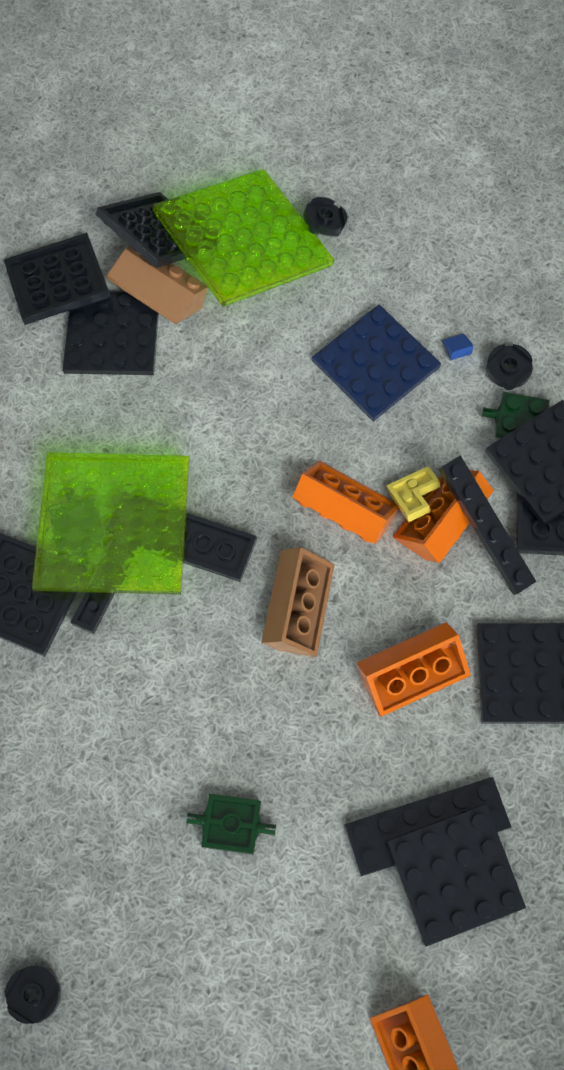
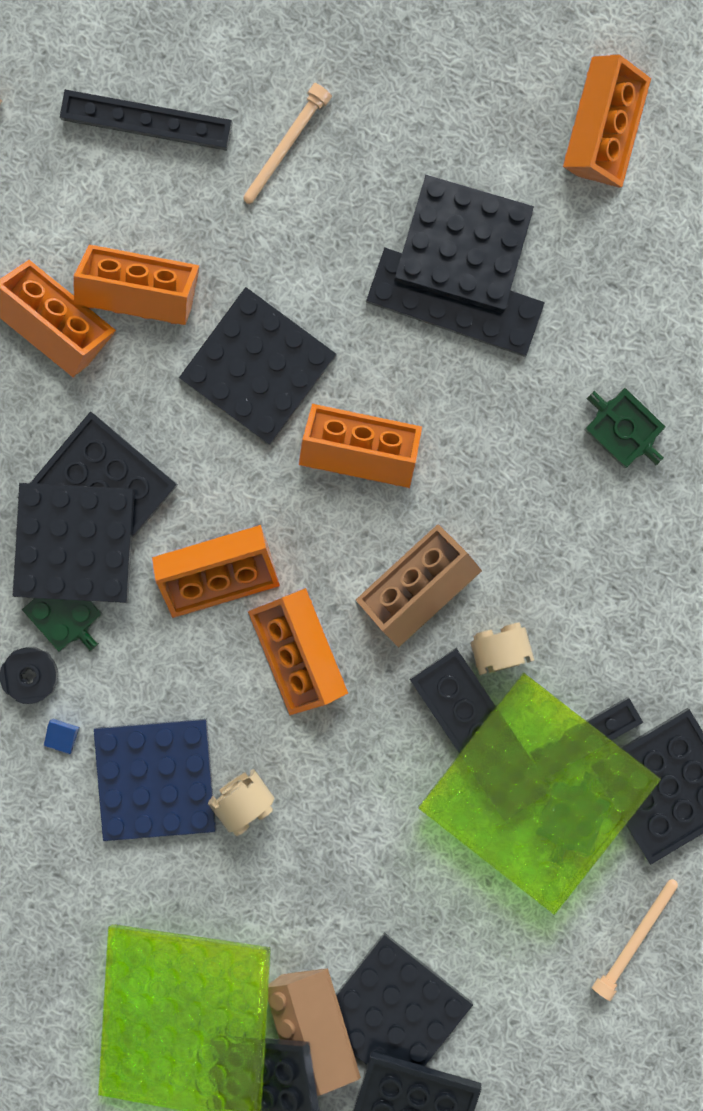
camera: 150 degrees left, 20 degrees up
(207, 597) = (501, 649): none -> tan brick
(309, 382) = (242, 802): none -> tan brick
(331, 224) = (94, 978): black plate -> none
(409, 490) = (231, 619): light yellow plate -> none
(487, 525) = (189, 526): black plate -> none

